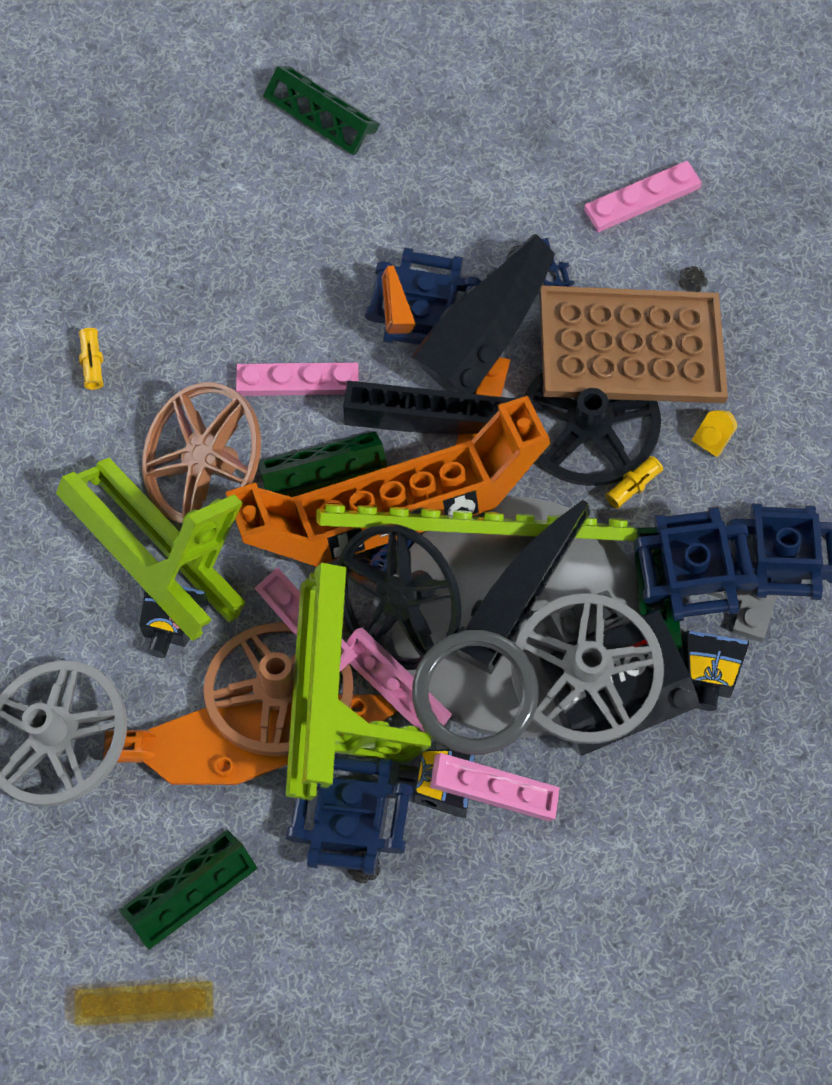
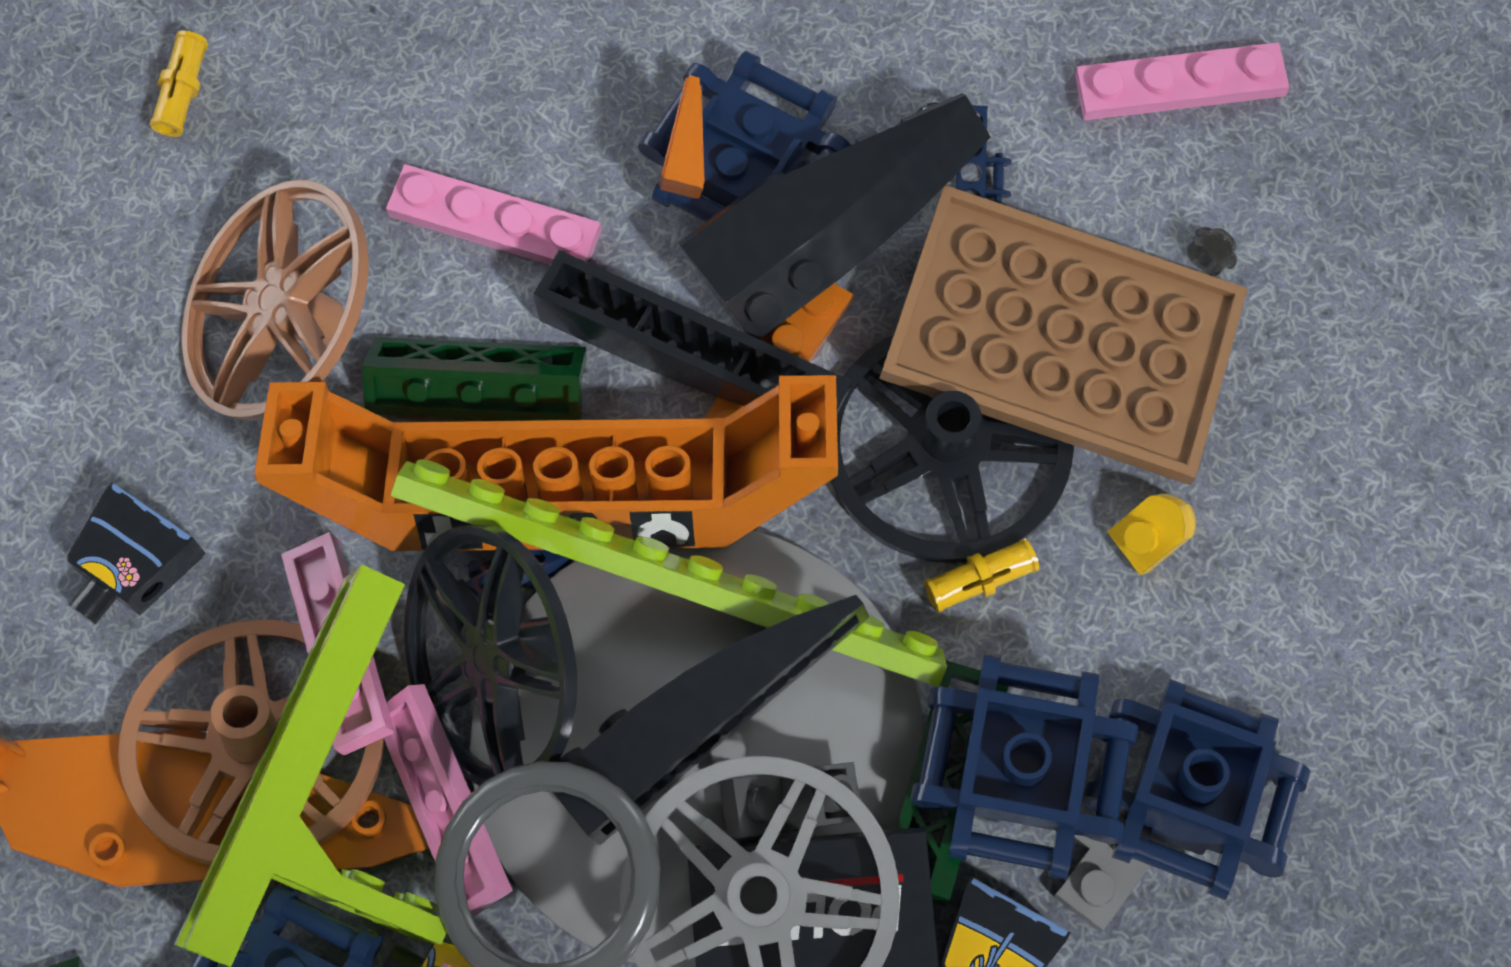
camera: 20 degrees right, 5 degrees up
(190, 550) = (182, 443): lime piece -> none

